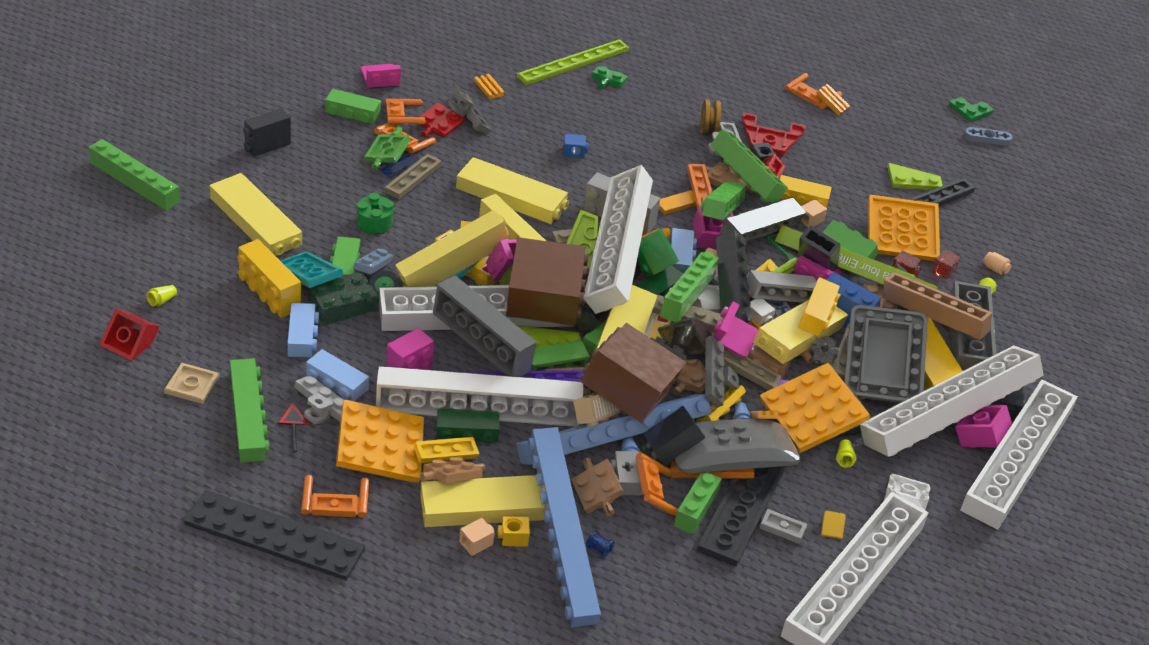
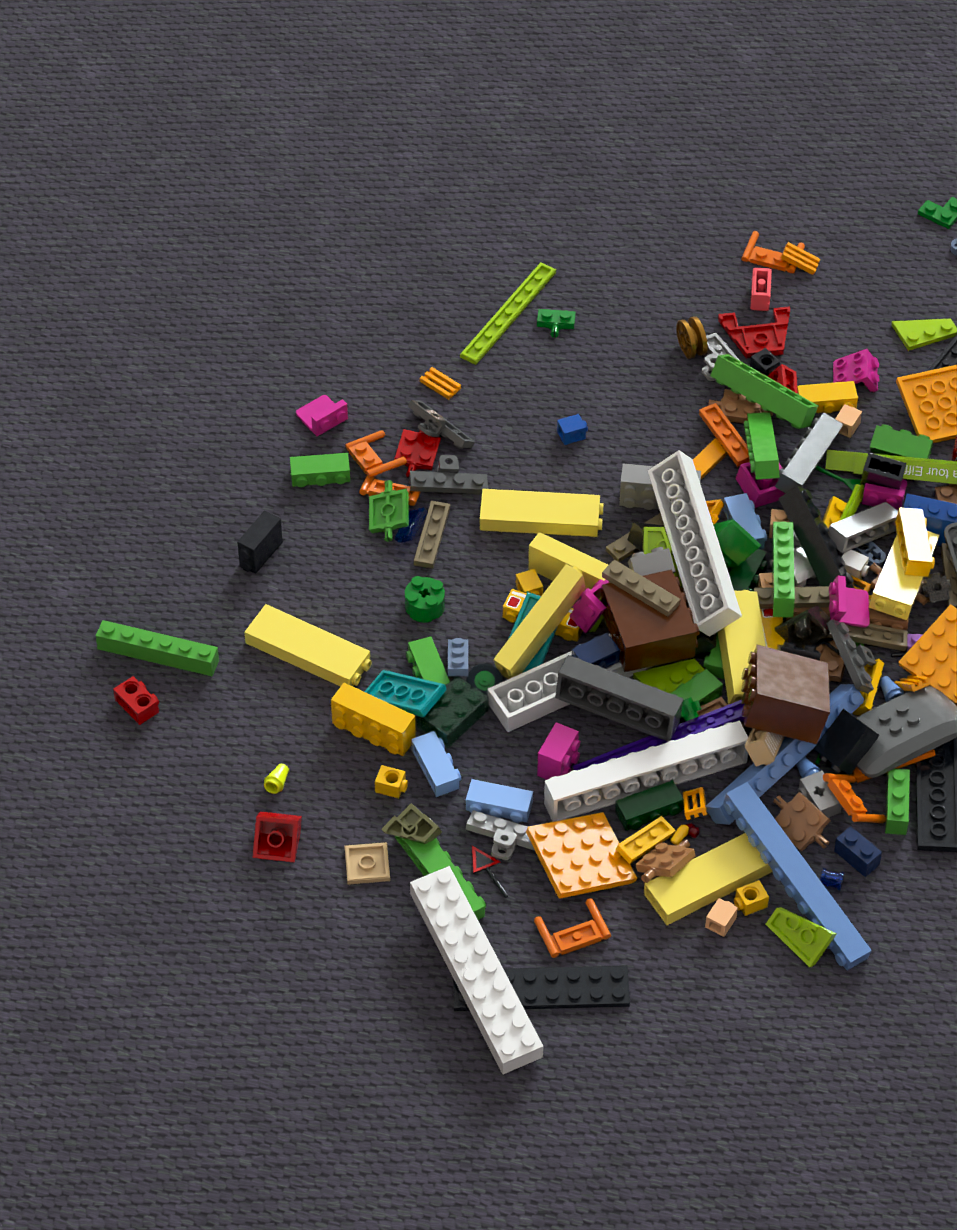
camera: 15 degrees left, 10 degrees up
(90, 203) = (136, 700): none -> red brick
(218, 496) = (476, 970): none -> white brick
(243, 363) = (413, 826): none -> olive slope
(253, 329) = (385, 777): none -> yellow brick
(450, 144) = (447, 479): none -> dark grey plate
(487, 457) = (684, 831): none -> yellow arm
(491, 289) = (598, 651): none -> dark blue brick
(506, 438) = (696, 810): none -> light orange tile
(542, 578) = (800, 935): none -> lime wing
(544, 360) = (690, 709): none -> green gear
(549, 249) = (641, 588): none -> dark tan plate
(575, 236) = (651, 563): none -> light grey brick
(637, 529) = (857, 851): none -> dark blue brick
(787, 106) = (761, 289): none -> coral brick
(844, 181) = (857, 368): none -> dark pink bracket

